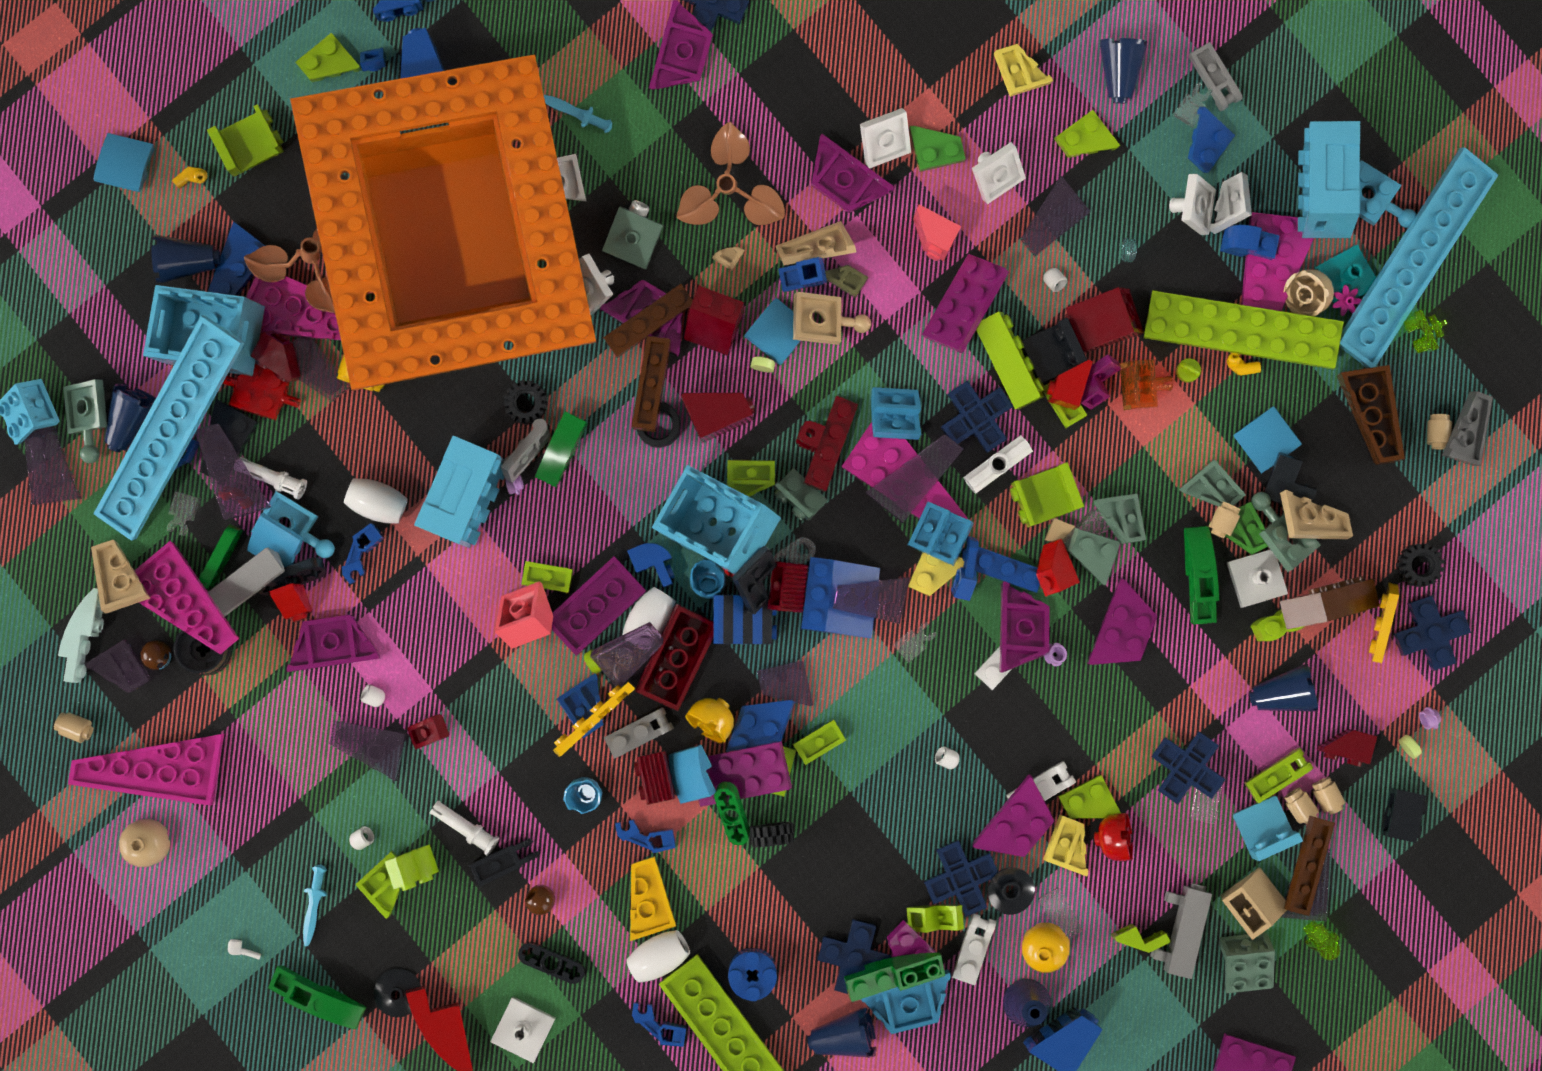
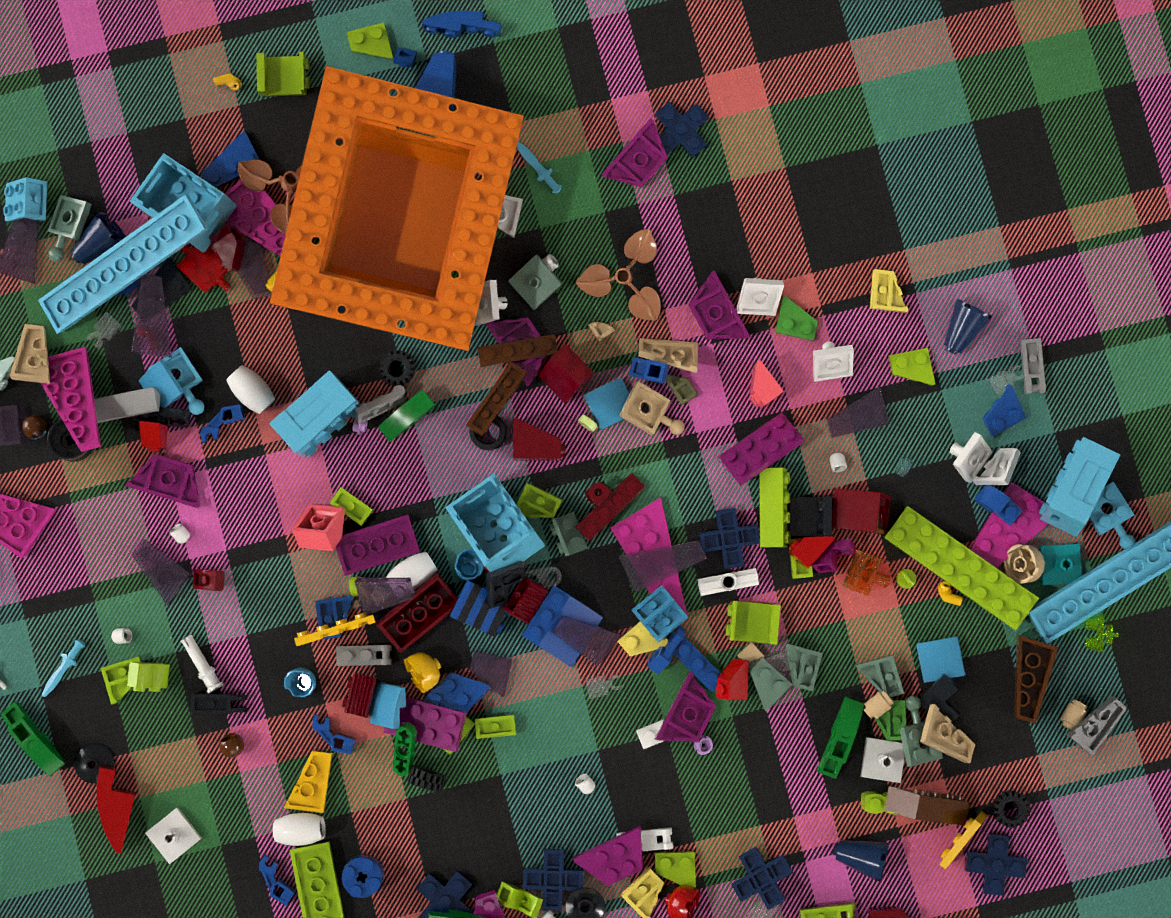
camera: 25 degrees right, 0 degrees up
(123, 162) = (183, 47): dark azure slope -> none
(182, 258) = (193, 140): dark blue cone -> none
(220, 556) = (116, 376): green beam -> none
(280, 481) = (187, 340): white pin -> none
(565, 976) = (213, 780): black beam -> none
(652, 555) = (435, 527): blue brick -> none
(895, 413) = (669, 507): dark azure slope -> none
(1124, 628) = (764, 750): magenta wing -> none
(1346, 300) = (1048, 580): dark pink plant -> none

